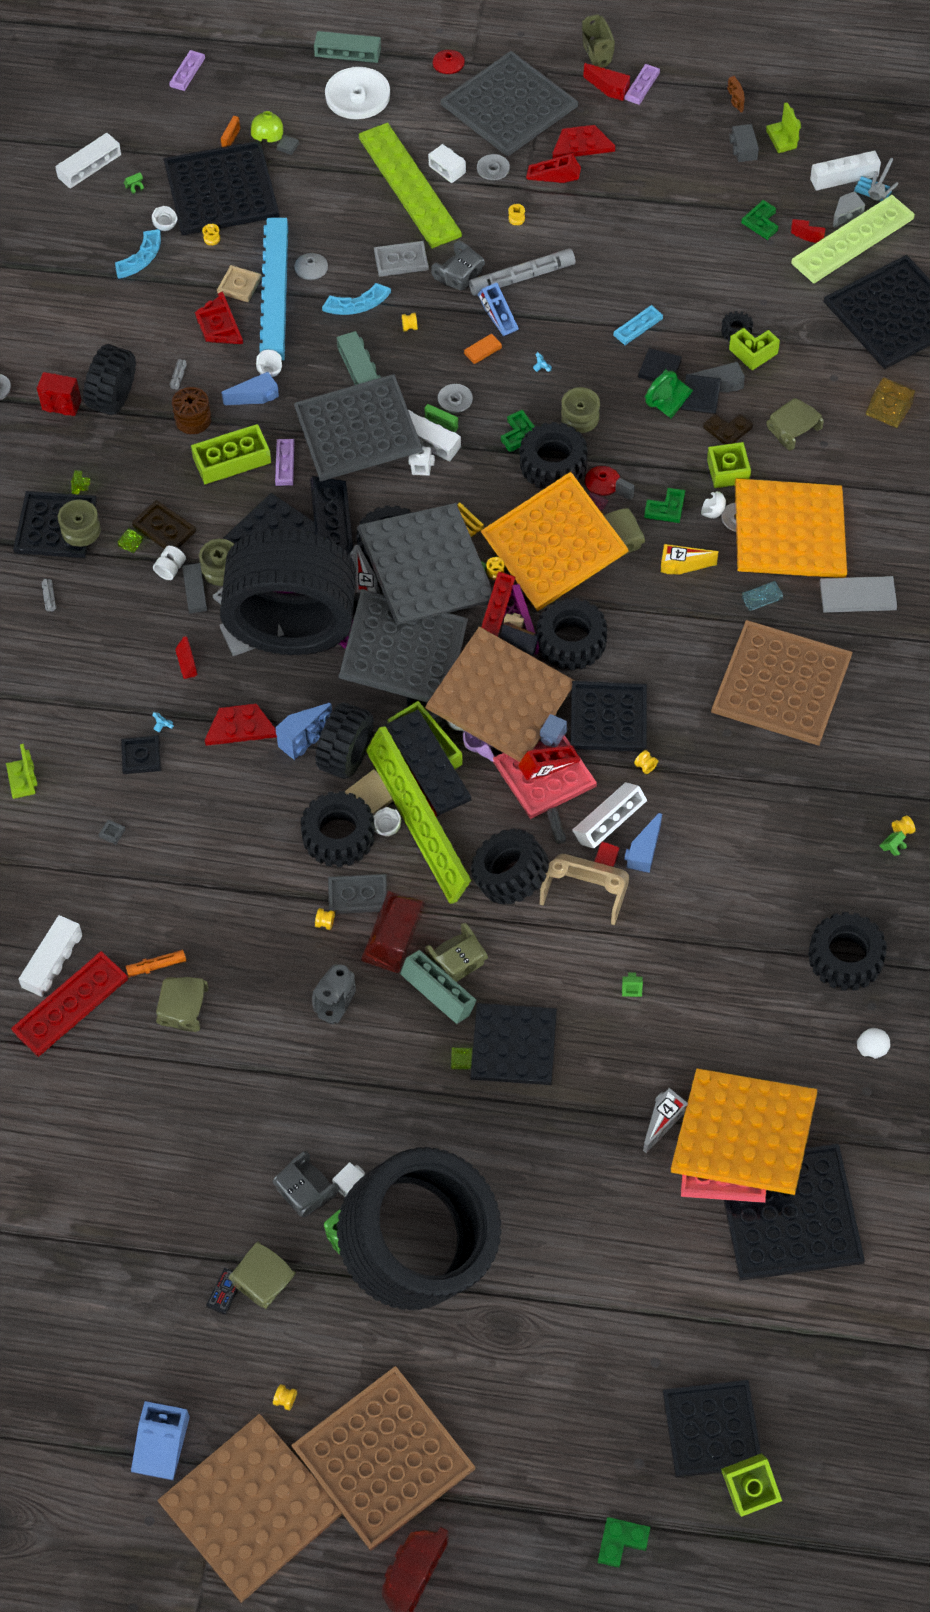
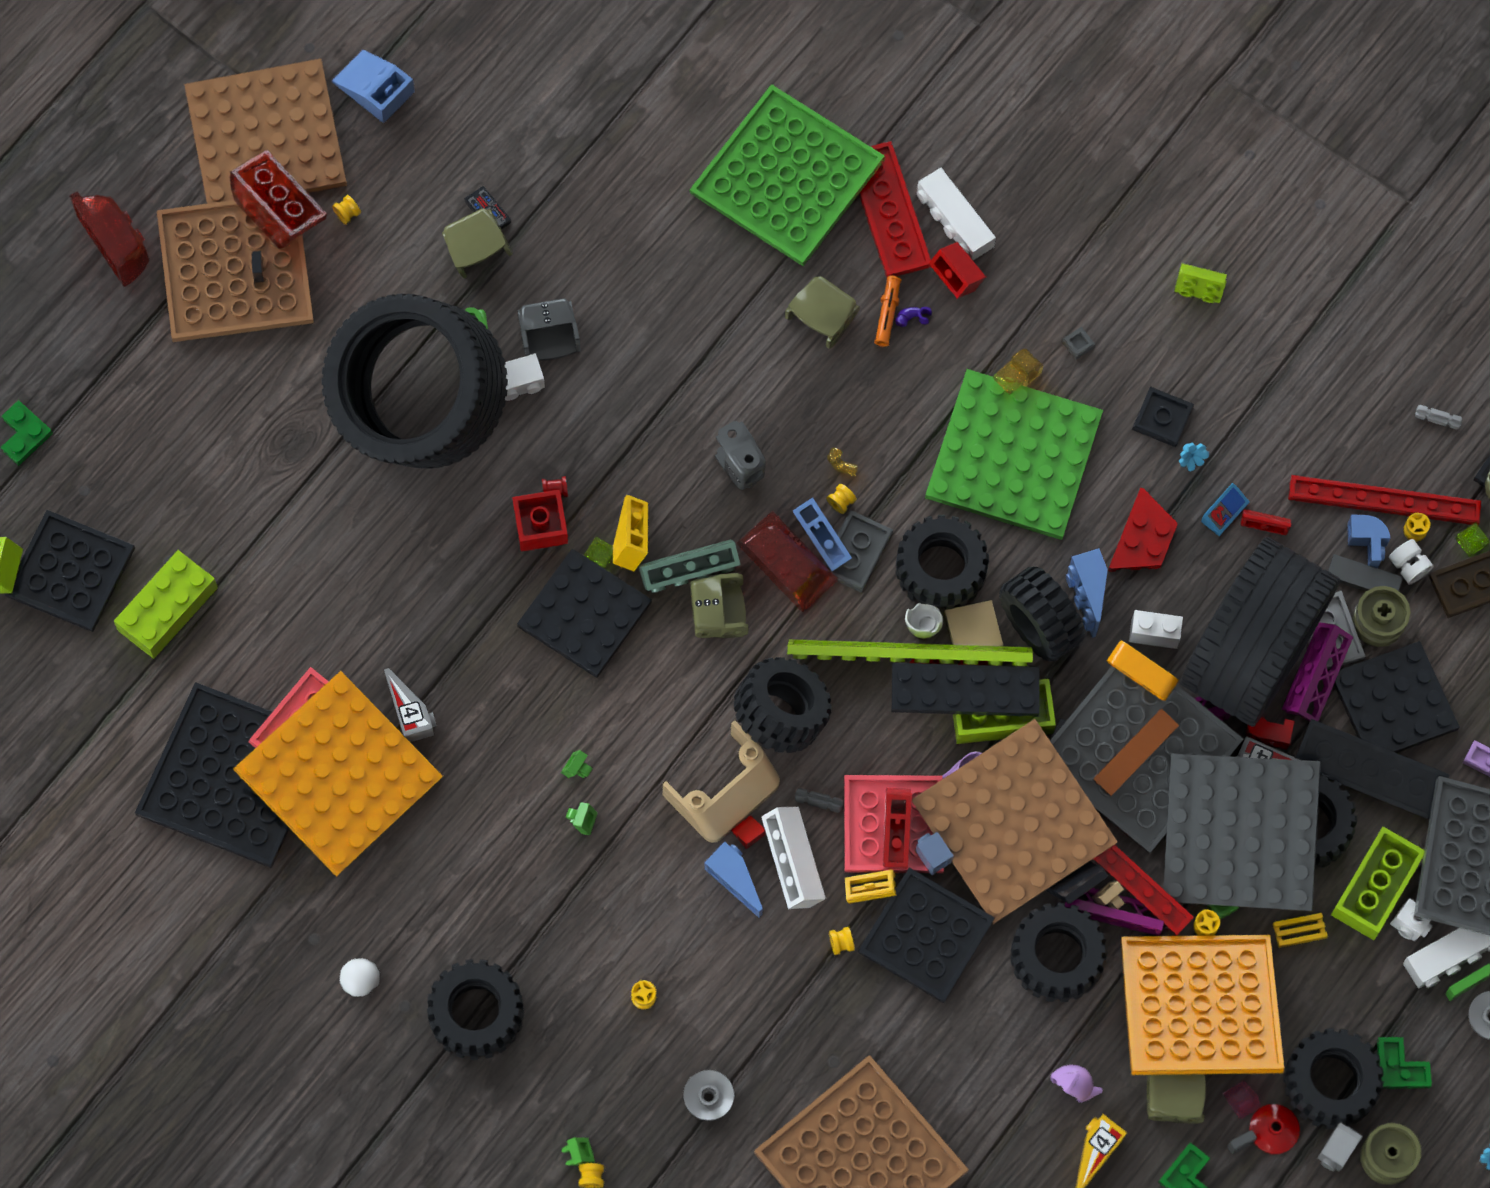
camera: 115 degrees right, 10 degrees up
(79, 1084) = (787, 175): none -> bright green plate
(98, 929) = (957, 270): none -> red brick
(130, 601) = (1384, 500): none -> red tile
(136, 569) = (1420, 522): none -> yellow wheel
(149, 950) = (910, 312): none -> dark purple arm
(158, 850) = (1019, 371): none -> clear yellow brick
(162, 594) = (1369, 532): none -> medium blue brick
(191, 687) = (1225, 510): none -> slope
(223, 832) = (1014, 455): none -> bright green plate
(297, 935) = (839, 465): none -> clear yellow arm
(307, 683) = (1155, 629): none -> white brick
(315, 1441) = (274, 199): none -> clear red windscreen
(354, 655) = (1142, 670): none -> light orange beam
(360, 916) = (822, 534): none -> medium blue slope
(377, 1429) = (257, 266): none -> black tile
(408, 486) = (1378, 883): none -> lime brick
(409, 644) = (1135, 752): none -> dark orange tile
(430, 1113) = (551, 485): none -> red bush
(438, 1038) = (632, 534): none -> yellow slope
(464, 1105) = (540, 520): none -> red brick
(591, 766) = (889, 886): none -> yellow tile
(595, 435) = (1339, 1147): none -> light grey slope
(650, 587) = (1075, 1082): none -> lavender piece
(667, 961) = (583, 818): none -> bright green tile
(694, 1336) = (165, 604): none -> lime brick
(762, 854) = (643, 989): none -> yellow wheel
(802, 779) = (713, 1083): none -> light grey dish

